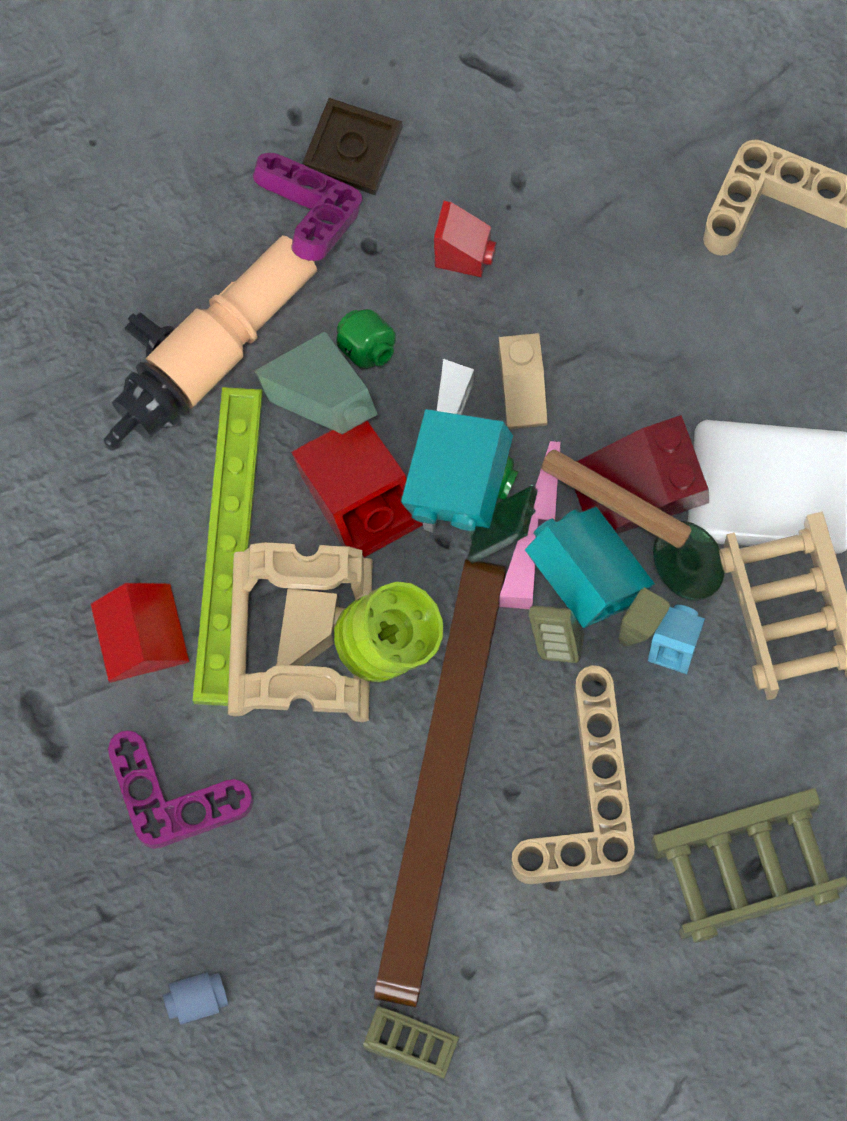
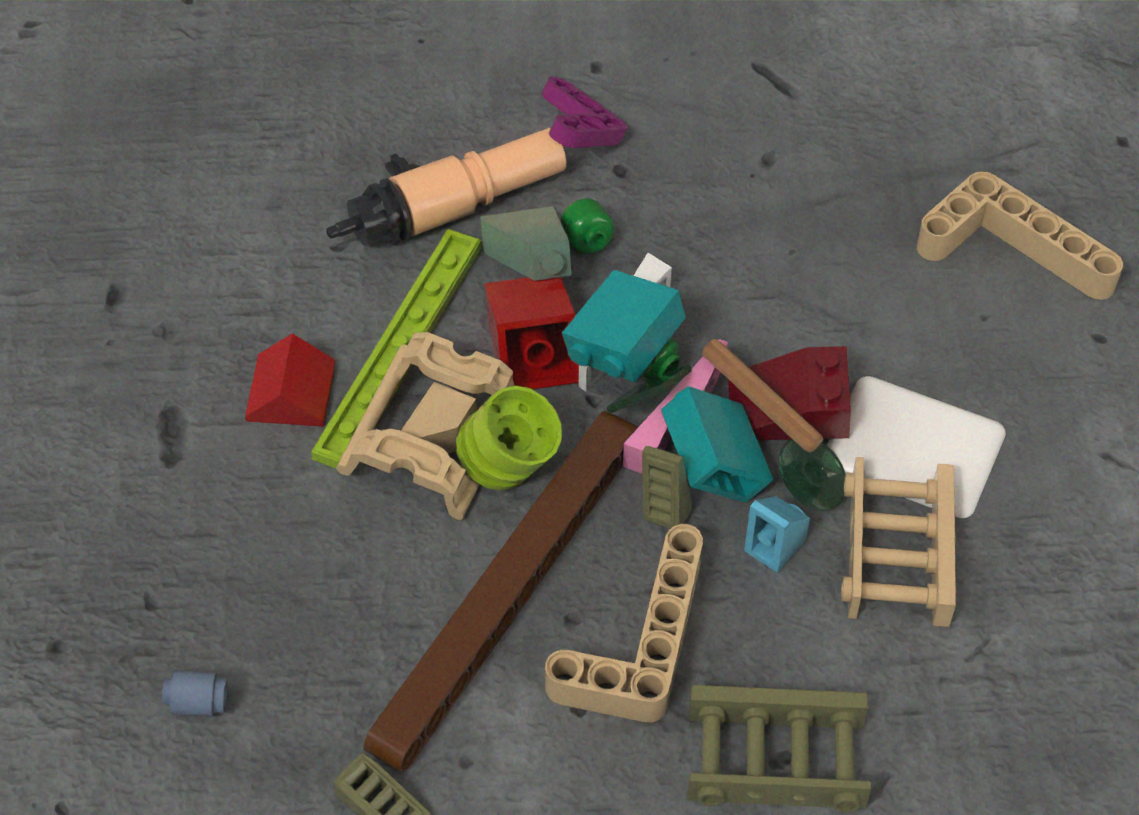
camera: 15 degrees right, 20 degrees down
(171, 811) = (249, 534): magenta beam -> none
(353, 145) = (637, 96): dark brown tile -> none
(462, 241) = (699, 175): slope -> none
(522, 381) = (713, 293): tan slope -> none
(642, 618) = (742, 490): olive slope -> none

